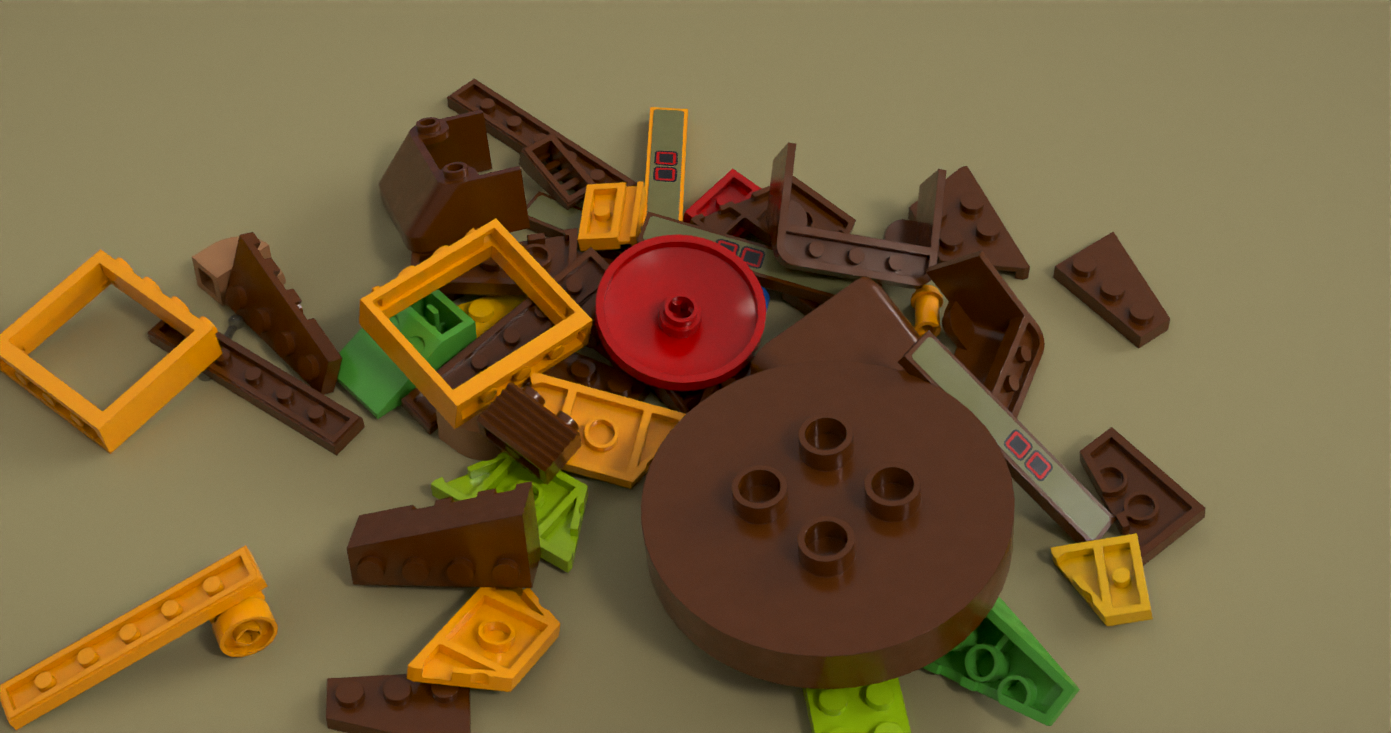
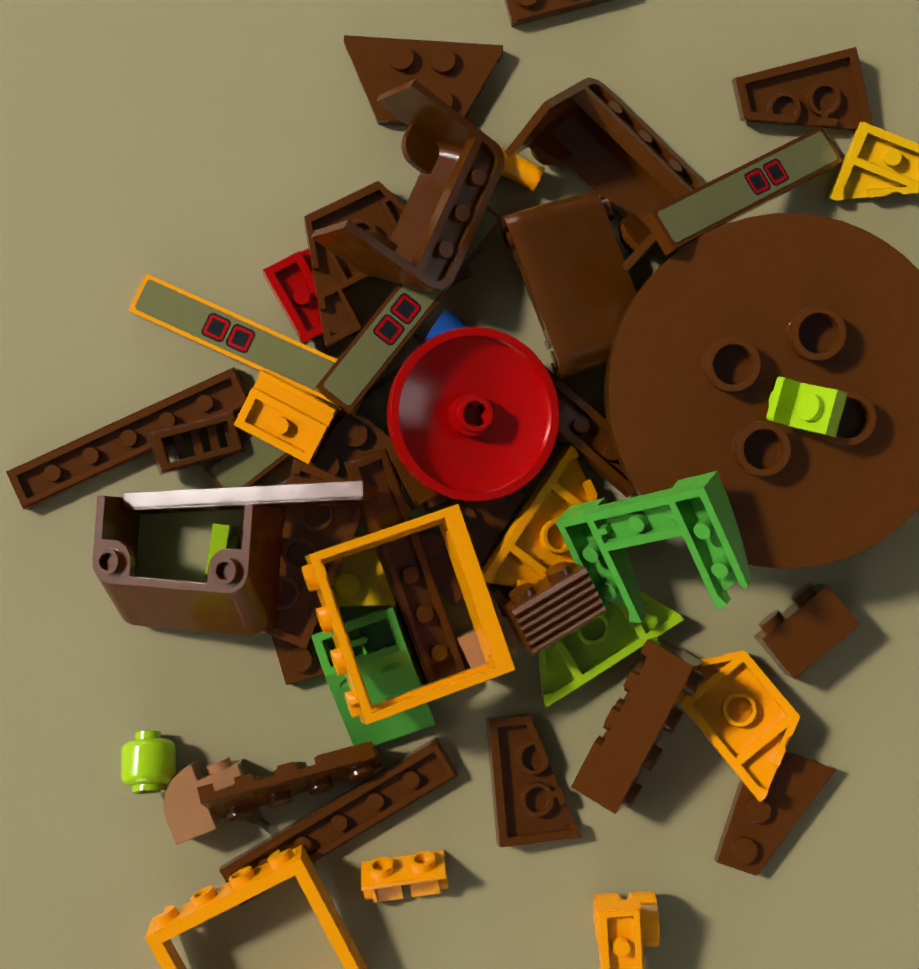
camera: 70 degrees left, 40 degrees up
(227, 446) = (384, 876): none -> light orange hinge
(264, 221) = (148, 762): none -> lime head
(328, 503) = (524, 788): none -> reddish brown wing
(545, 220) = (237, 497): none -> tile
(605, 669) = (805, 629): none -> reddish brown brick
(664, 455) = (692, 509): none -> bright green wedge
(815, 493) = (806, 406): none -> lime bracket

